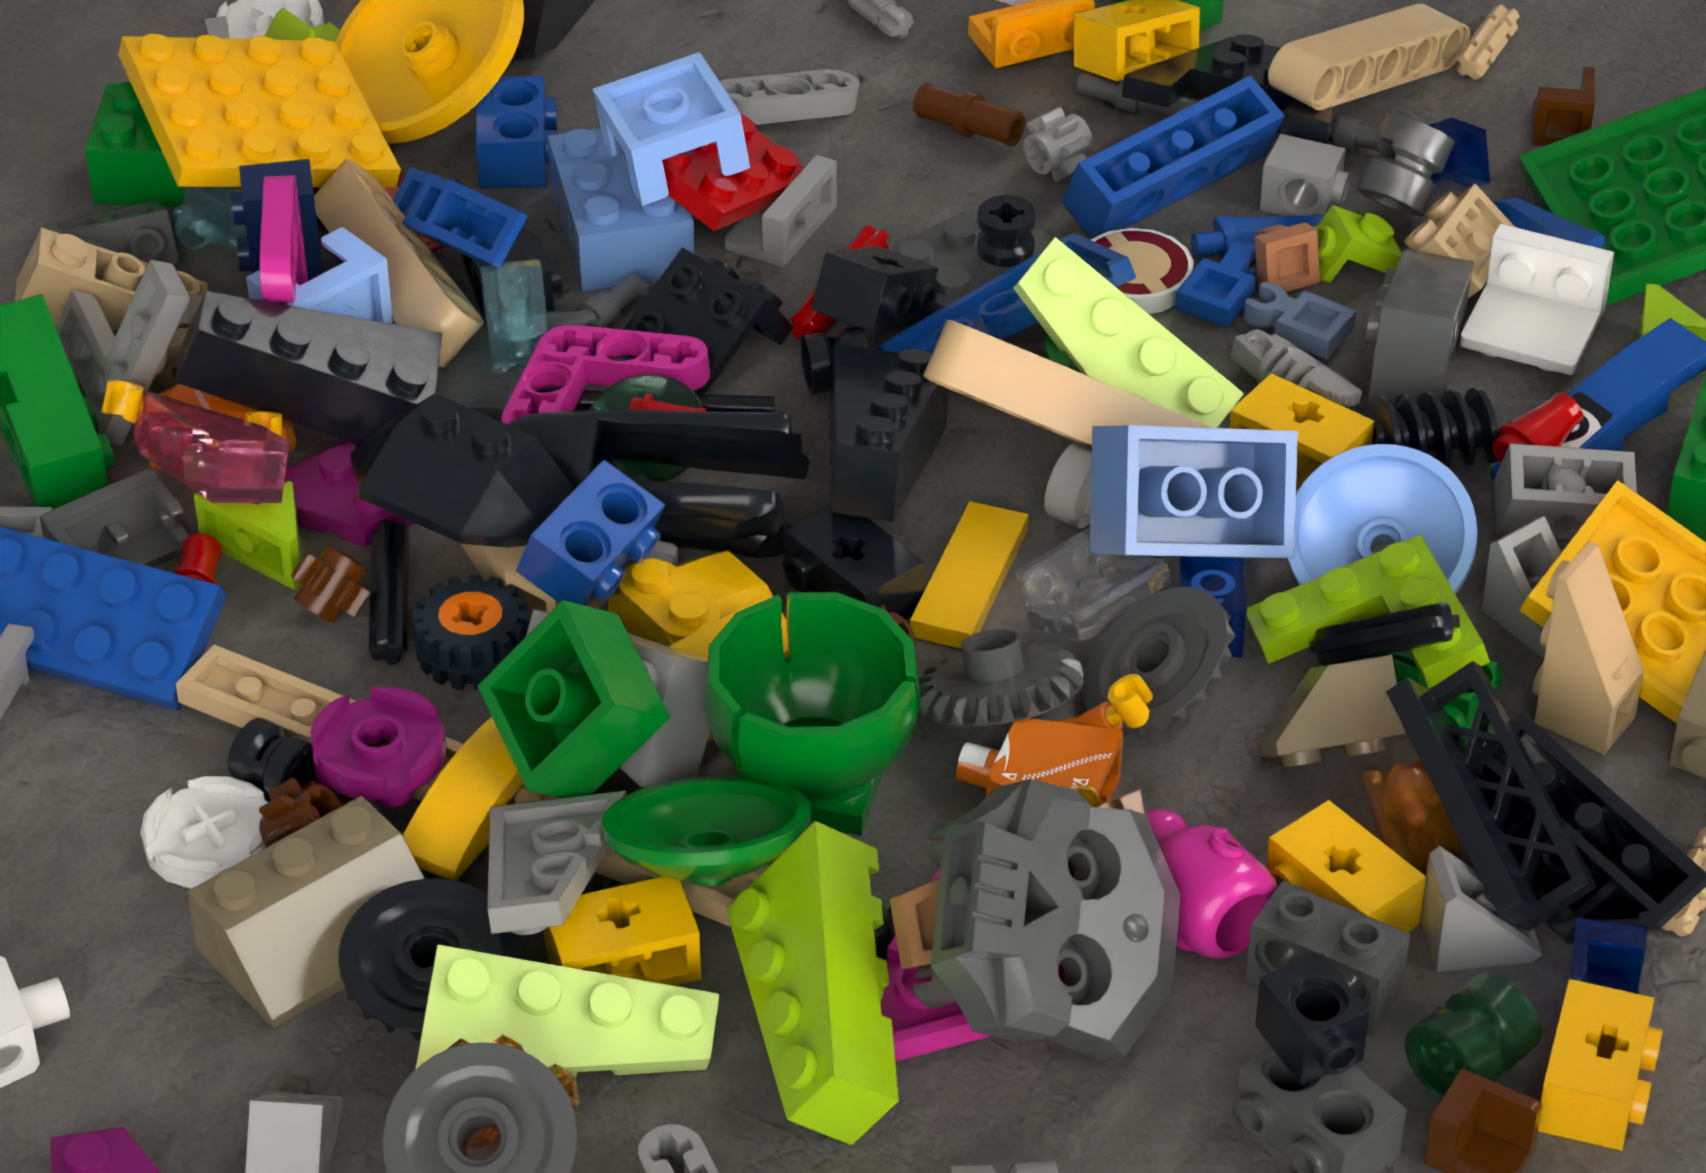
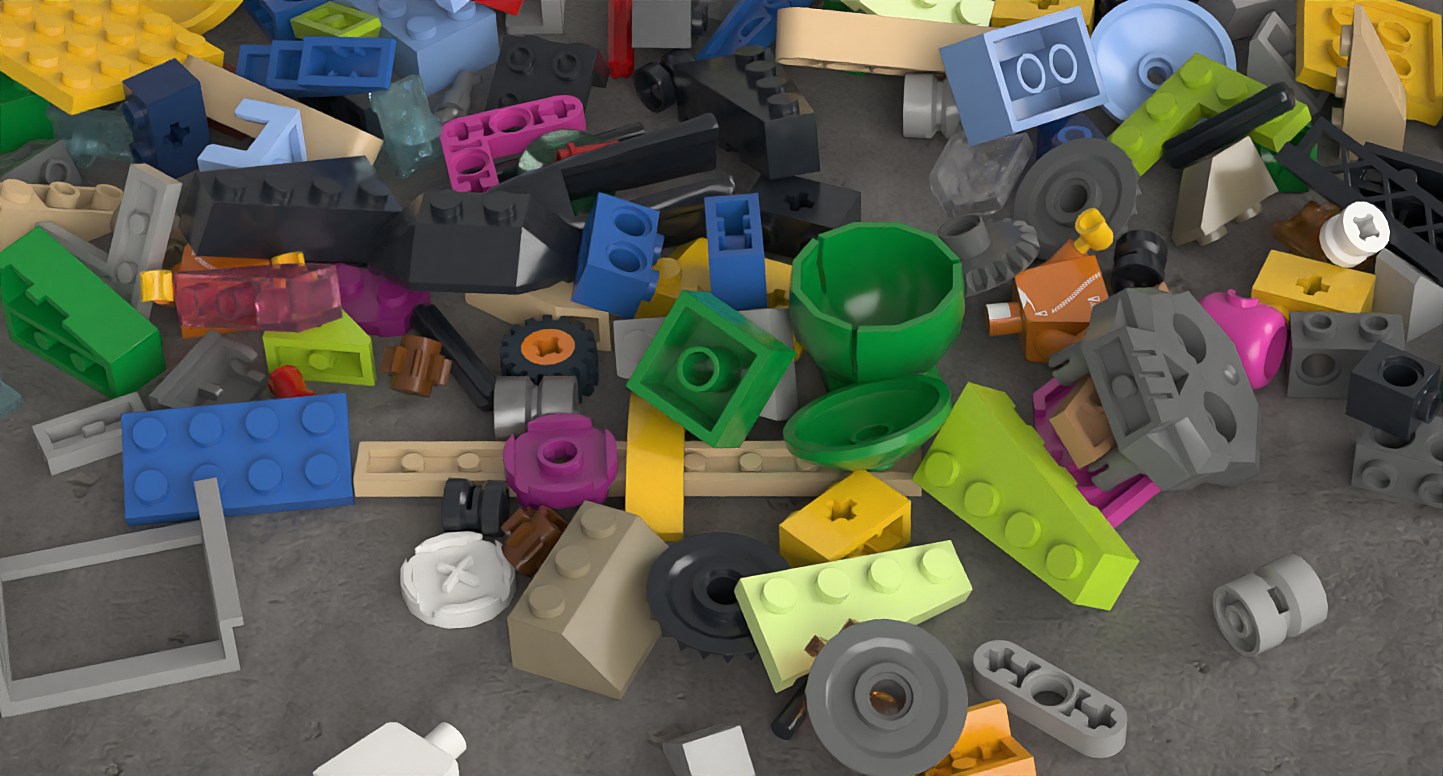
camera: 25 degrees left, 0 degrees up
(281, 241) = (209, 121): dark pink beam -> none
(402, 662) = (521, 401): none -> flat silver wheel
(532, 186) = (335, 21): none -> lime slope
(543, 859) = (758, 492): light grey wing -> none
(706, 579) = (736, 251): none -> blue brick
(969, 574) = (877, 174): yellow tile -> none
(1182, 761) = (1138, 261): none -> black wheel
(1403, 827) = (1341, 234): none -> white wheel

